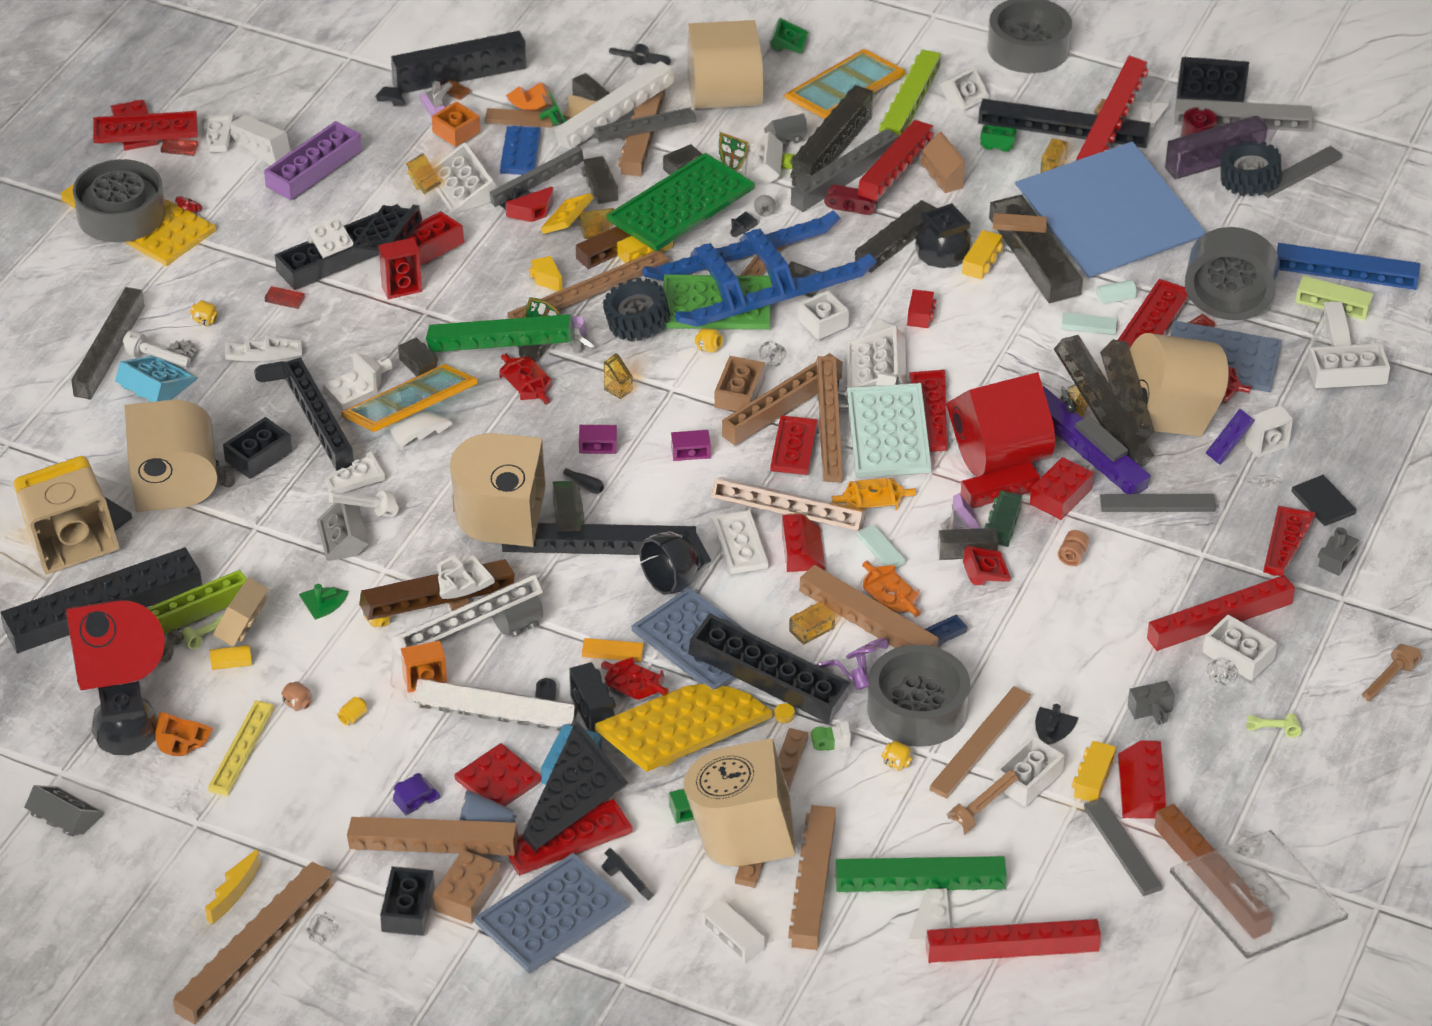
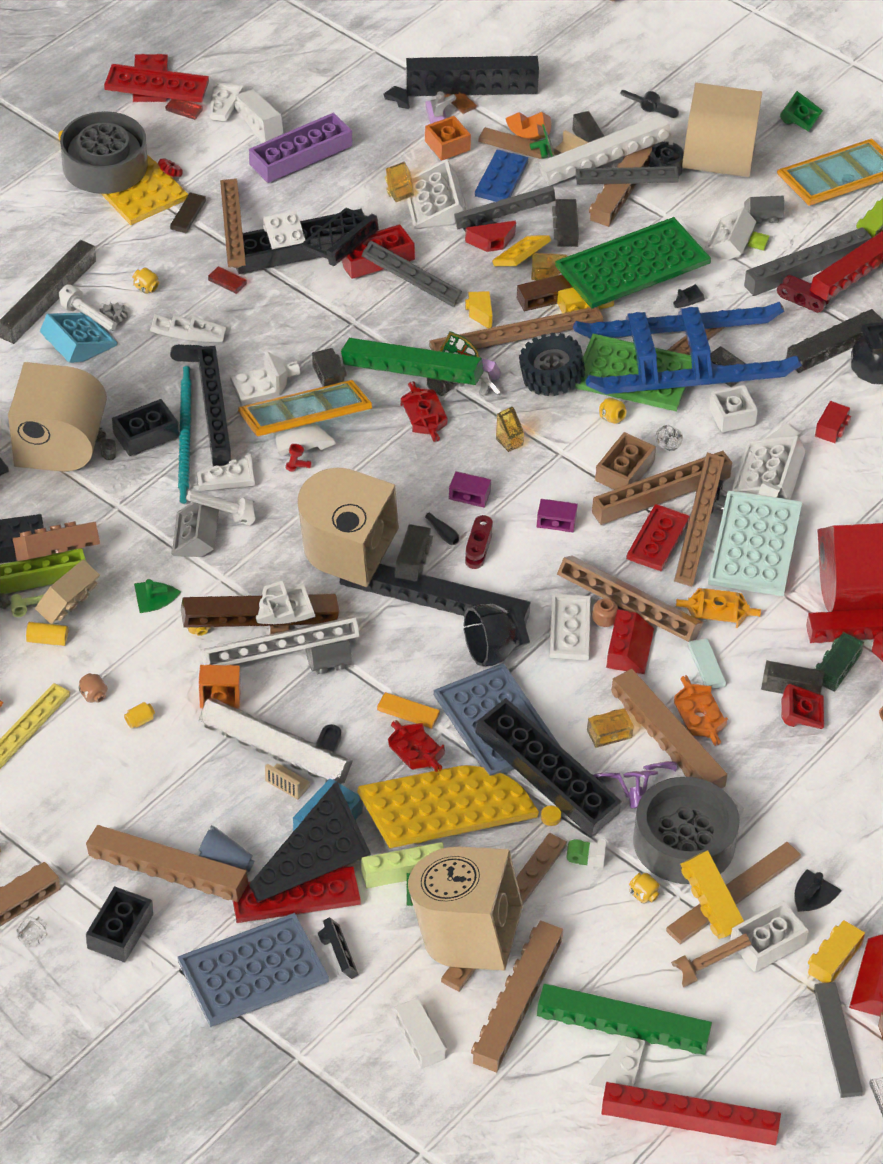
camera: 15 degrees right, 5 degrees up
(212, 566) = (55, 540): none -> nougat wedge
(221, 243) = (188, 212): none -> dark brown tile
(275, 241) = (232, 223): none -> medium nougat plate
(297, 446) = (184, 438): none -> teal hose
(400, 268) = (340, 275): red brick -> none
(413, 793) = (167, 812): dark purple cylinder -> none
(418, 437) = (296, 451): none -> red piece
(467, 887) = (181, 923): medium nougat brick -> none
(468, 254) = (411, 273): none -> dark grey tile
(498, 776) = (253, 816): red plate -> none
(519, 738) = (286, 780): none -> tan panel
(590, 695) = (367, 753): black brick -> none
(624, 484) = (478, 542): none -> dark red piece
(654, 789) = (393, 866): none -> yellowish green brick
(676, 99) = (667, 156): none -> black brick
(679, 158) = (650, 216): clear smoke brick -> none
(732, 150) = (703, 220): shield -> none
(764, 205) = (716, 282): light grey piece -> none
(770, 521) = (604, 612): none -> nougat head
(833, 134) = (808, 222): clear smoke brick -> none
(934, 400) = (813, 516): red wing -> none
(948, 629) = (741, 765): dark blue plate -> none
(961, 515) = (796, 649): lavender piece -> none
(965, 743) = (712, 894): none -> yellow brick

